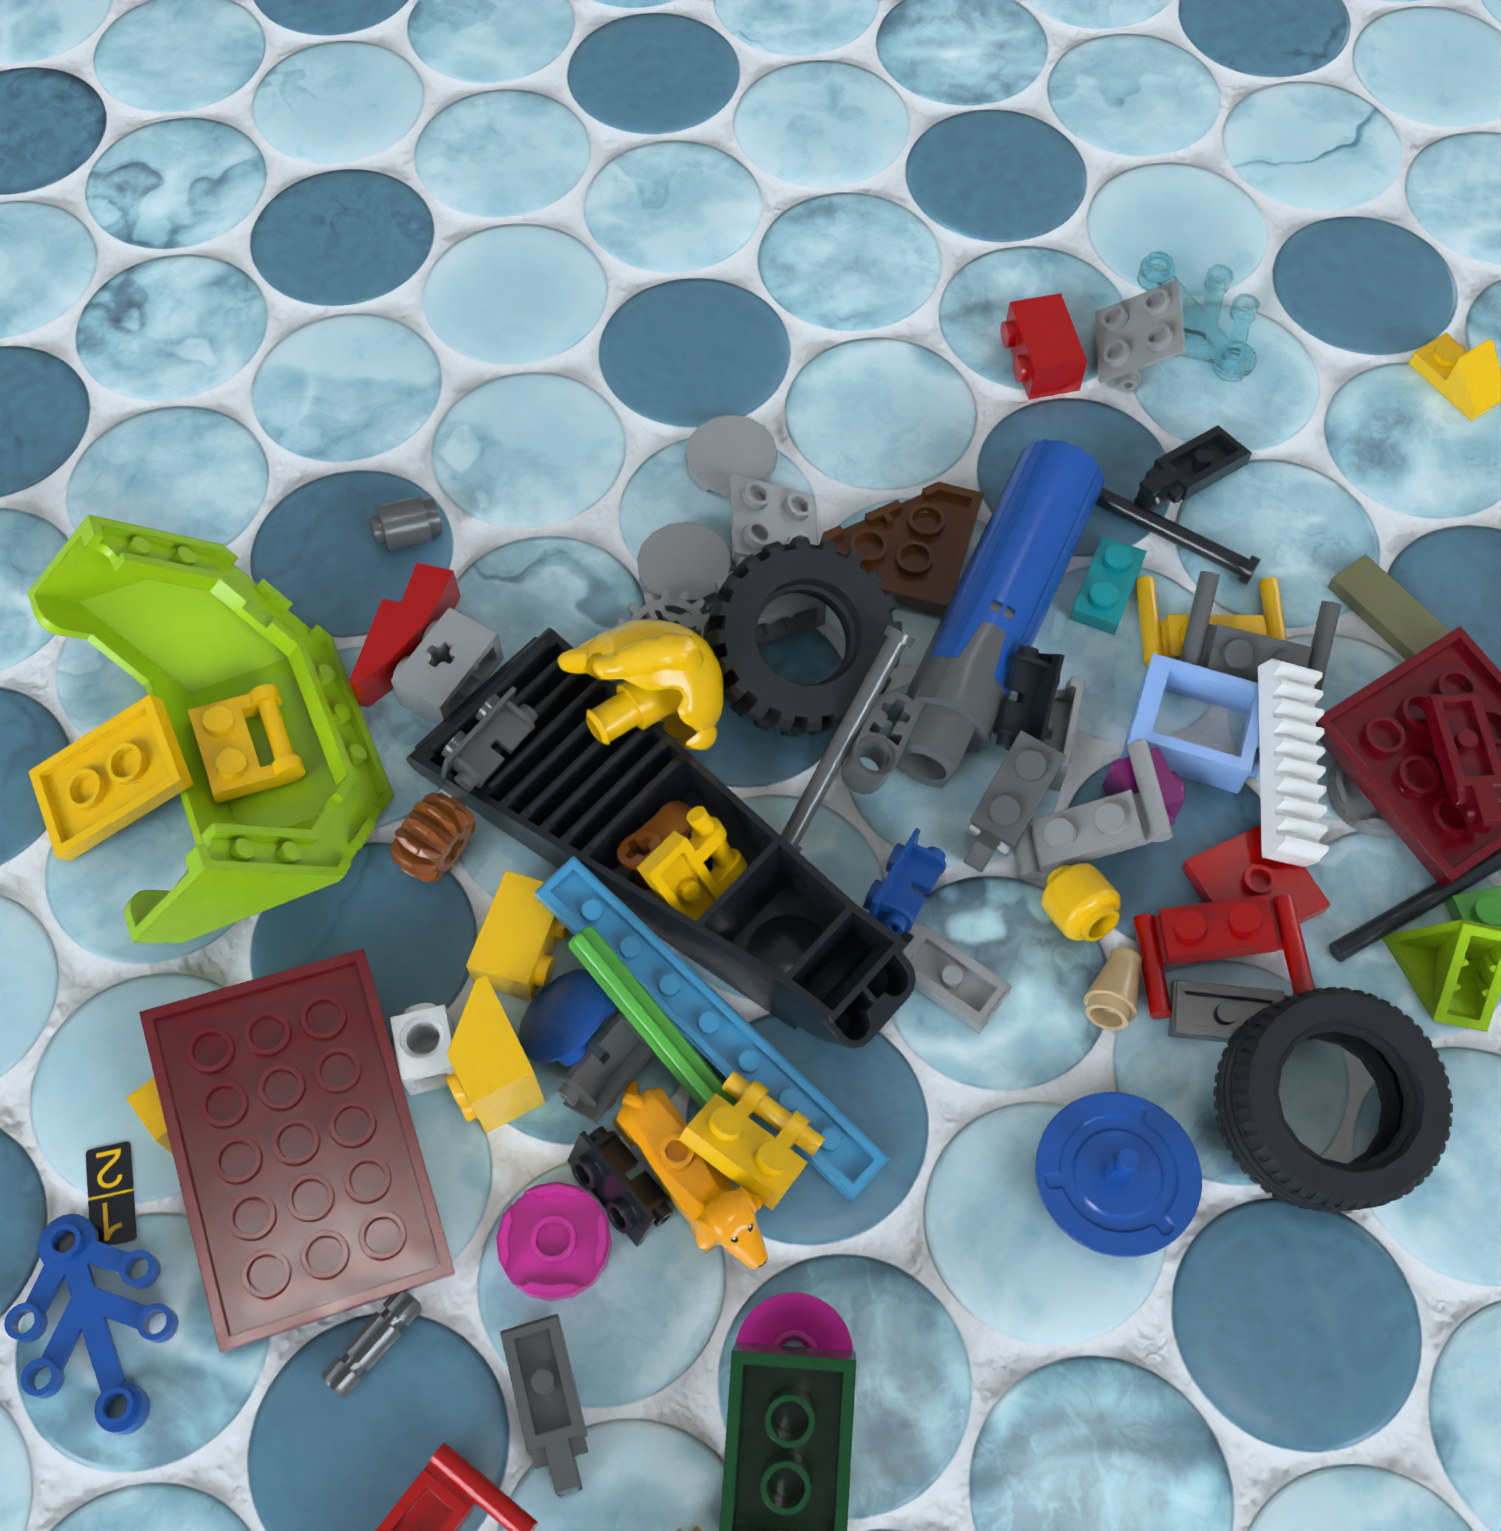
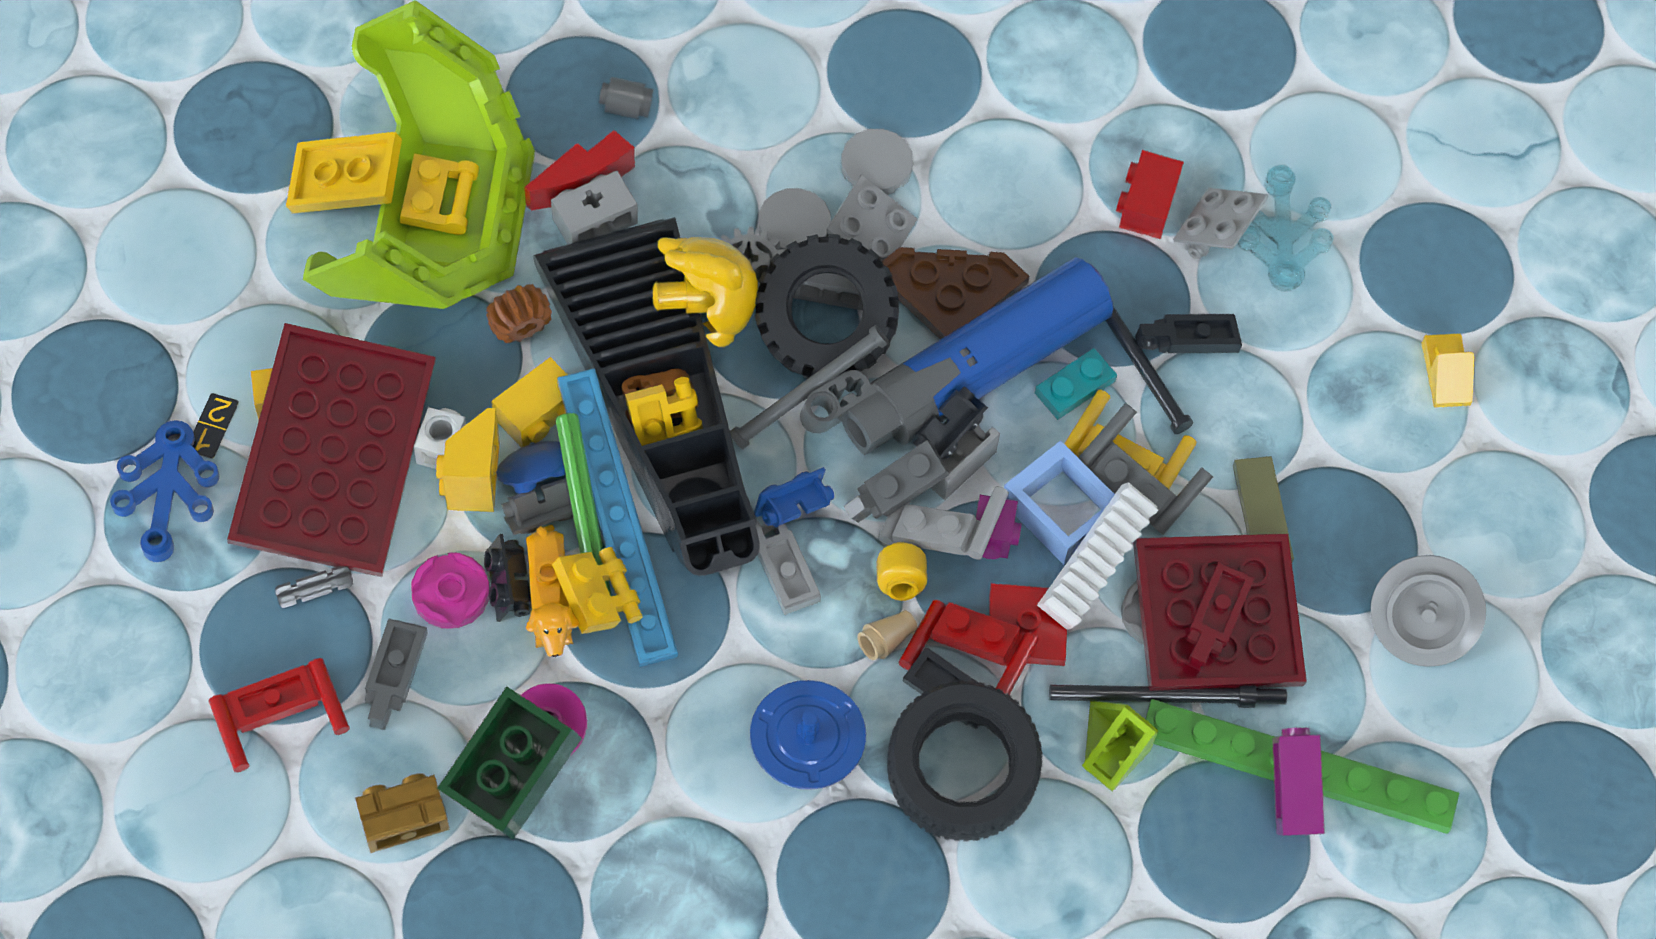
camera: 25 degrees right, 0 degrees up
(472, 753) = (598, 261): dark grey hinge -> none

